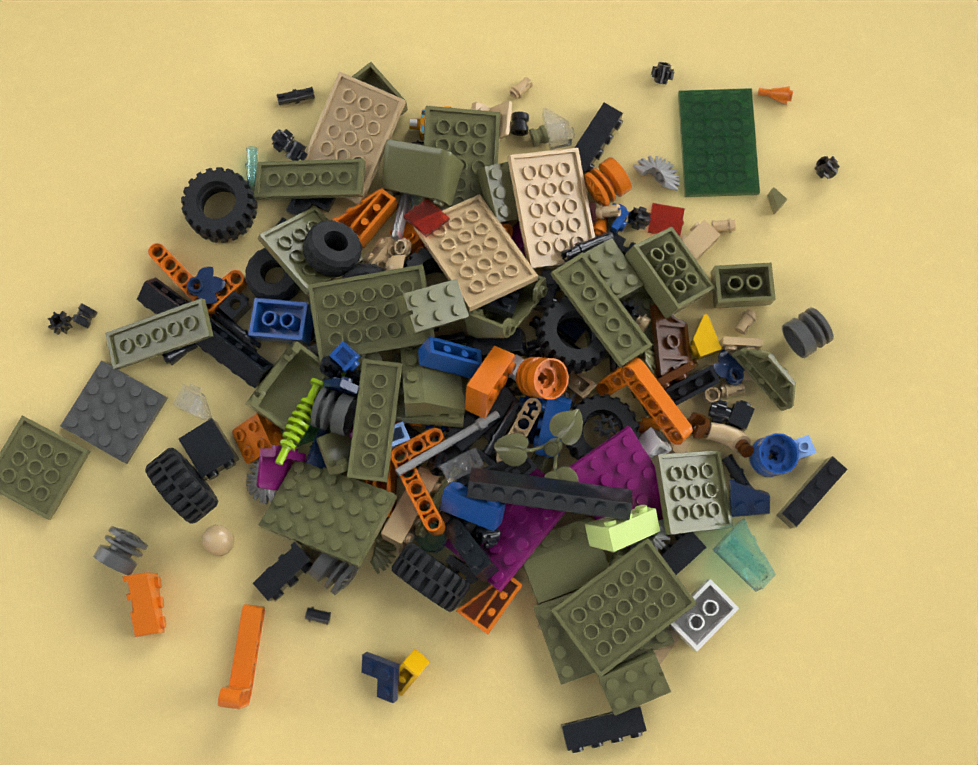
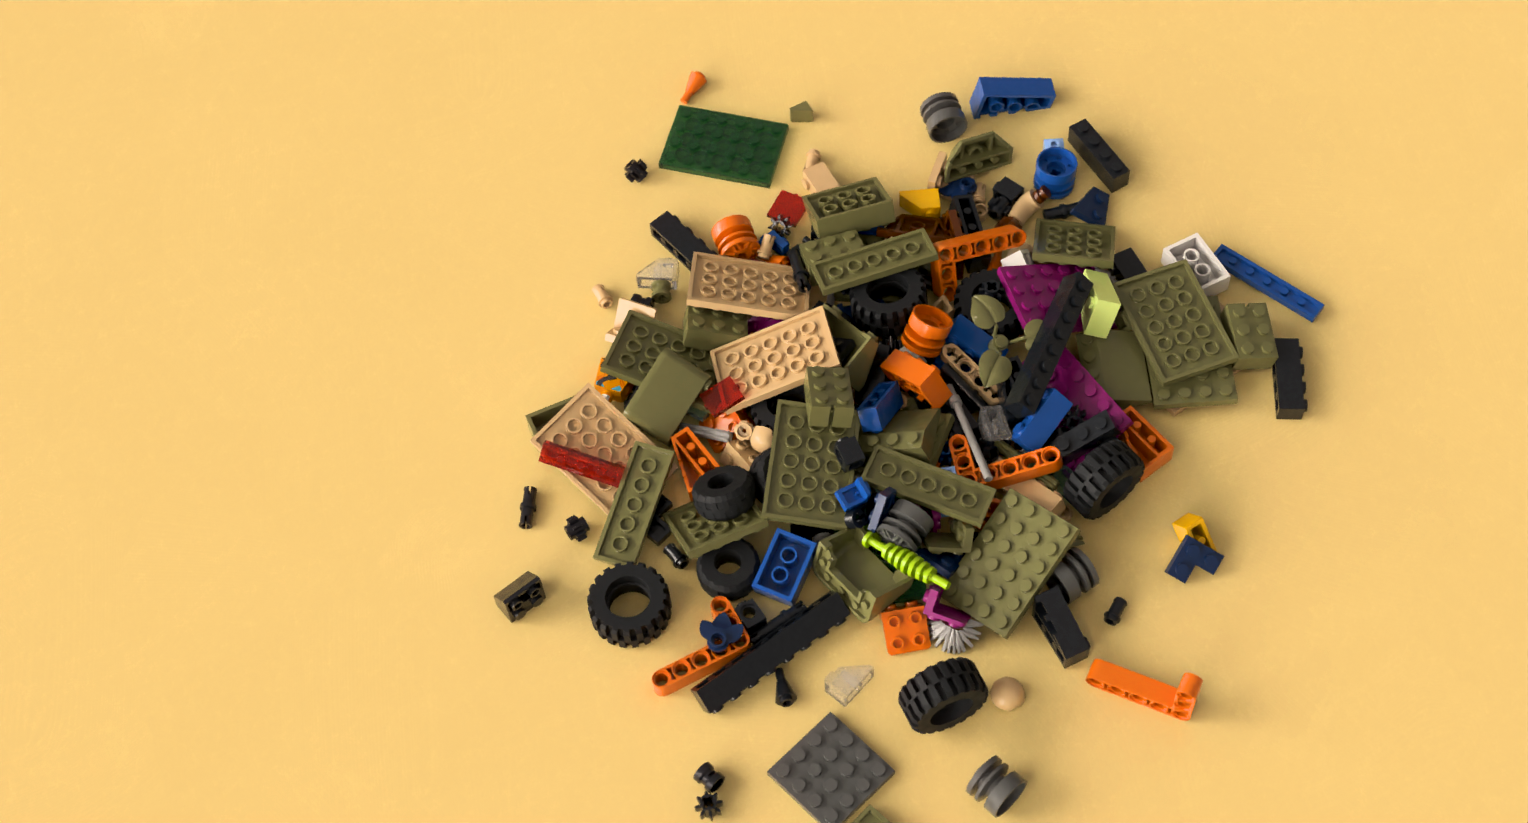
camera: 70 degrees left, 20 degrees down
(146, 603) = (1061, 776): orange wedge -> none
(159, 334) = (761, 692): olive plate -> none
(207, 115) = (520, 596): none -> black slope
(209, 449) = (894, 672): black brick -> none
(251, 165) = (591, 566): clear light blue pin -> none
(295, 151) = (596, 514): black gear -> none
(329, 121) = (581, 463): none -> clear red plate
(383, 342) = (849, 454): none -> black brick
(660, 171) = (737, 199): light grey hair -> none
(709, 688) = (1269, 283): none -> blue plate
(743, 285) = (879, 155): olive brick -> none
(744, 556) = (1147, 221): clear light blue wedge -> none
(746, 321) = (912, 164): tan pin -> none
(827, 167) = (783, 65): black gear -> none
(859, 392) = (1011, 95): none -> blue wedge

